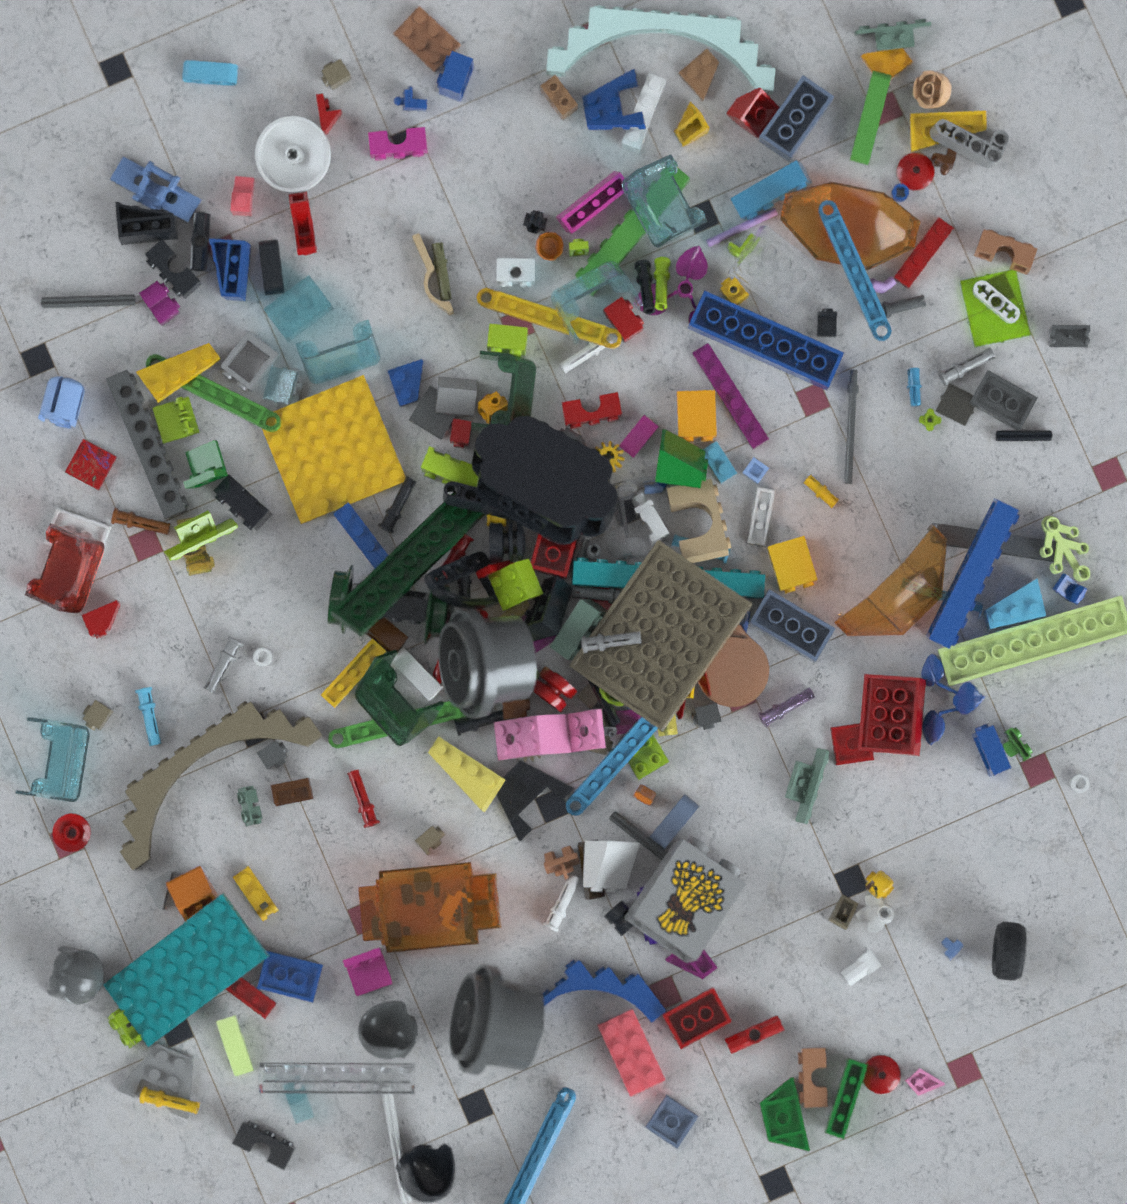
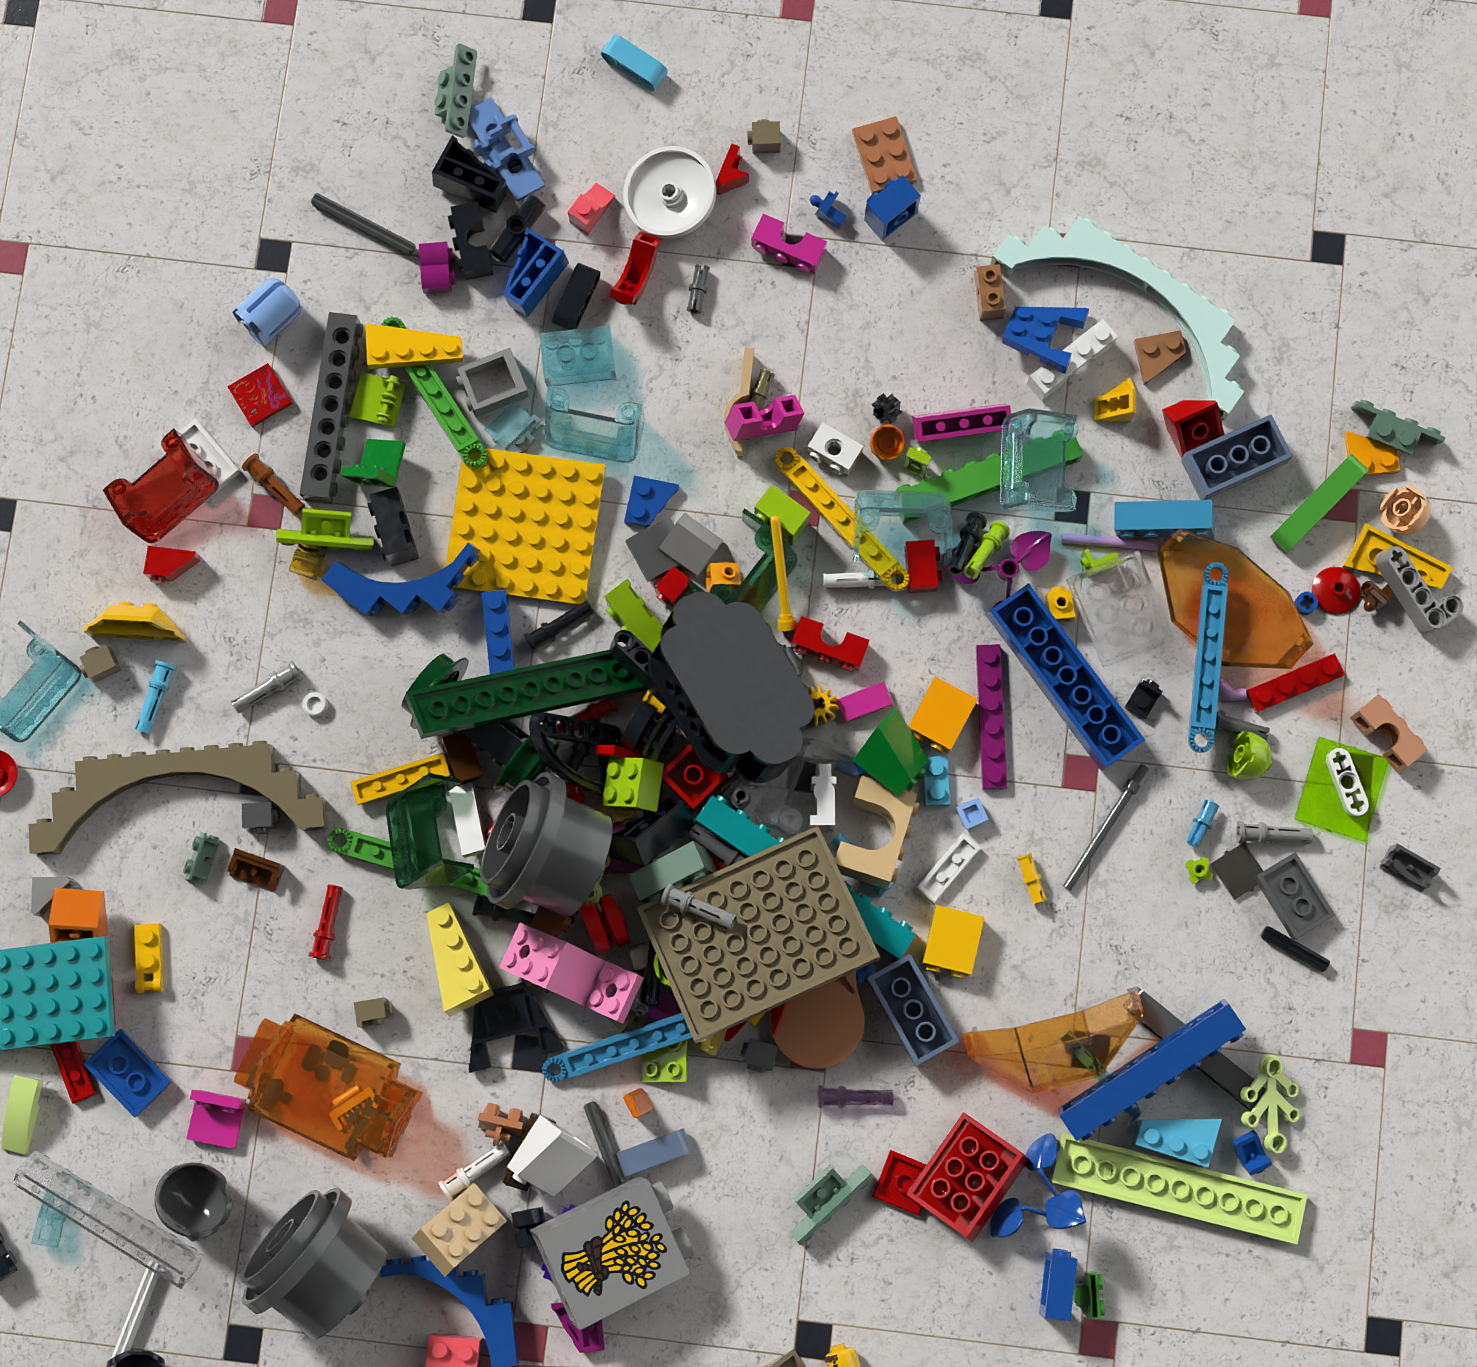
camera: 30 degrees right, 5 degrees down
(96, 167) = (456, 91): none -> sand green bracket
(104, 673) = (134, 623): none -> yellow wedge
(254, 559) = (435, 589): none -> blue arch
(353, 211) = (698, 288): none -> dark grey pin
(465, 270) = (780, 417): none -> dark pink arch
(552, 410) = (786, 620): none -> yellow piece
(576, 946) = (459, 1229): none -> tan brick
(921, 323) = (1250, 757): none -> lime cylinder

